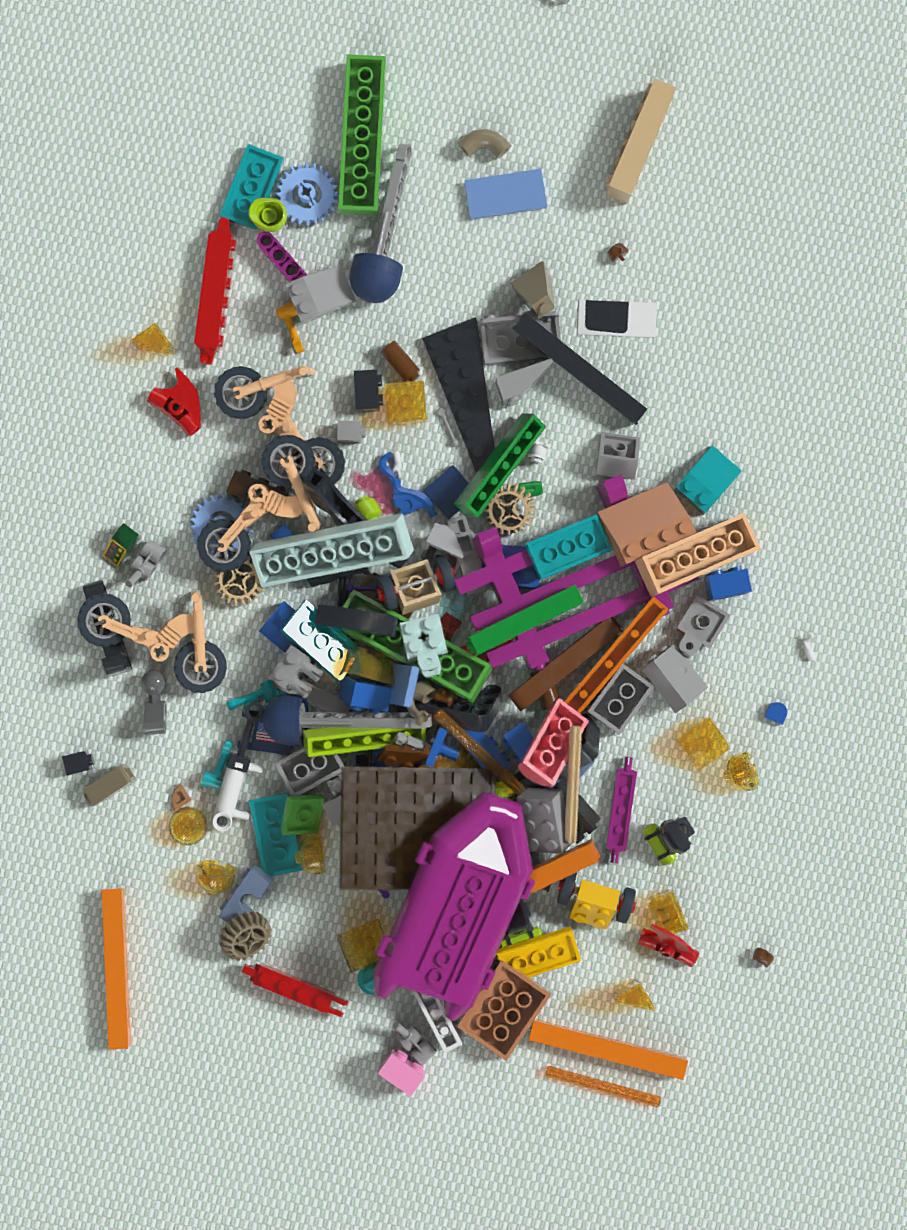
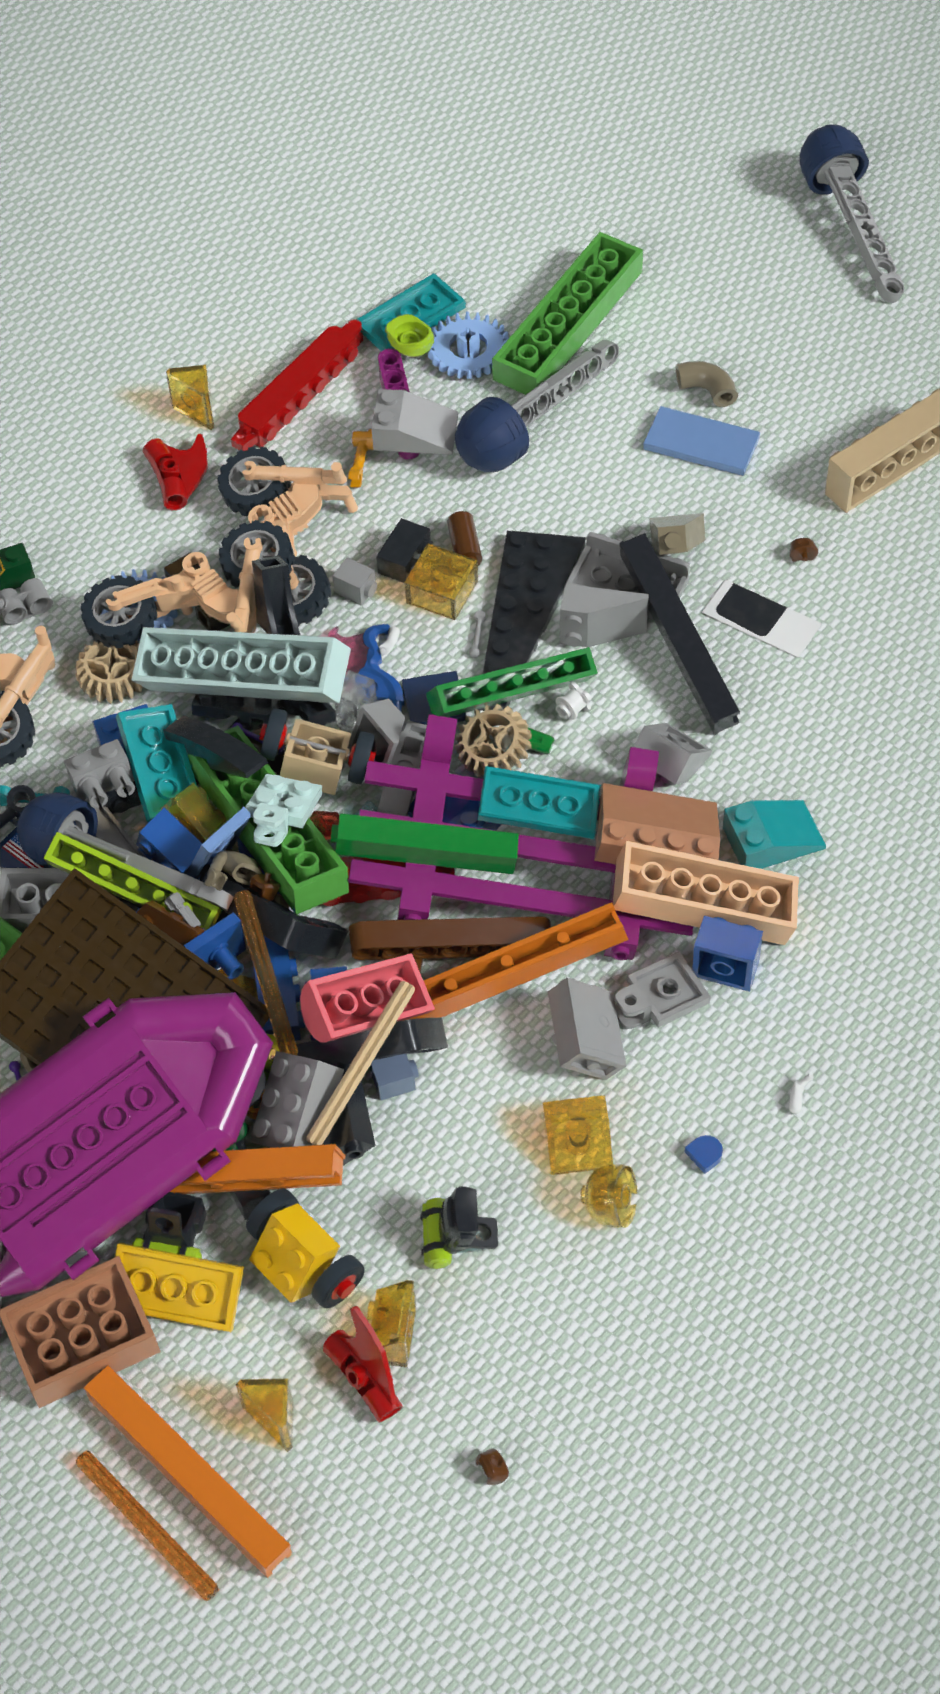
camera: 30 degrees right, 30 degrees down
(620, 699) = (497, 1021): light grey brick -> none
(621, 810) = (412, 1163): magenta plate -> none

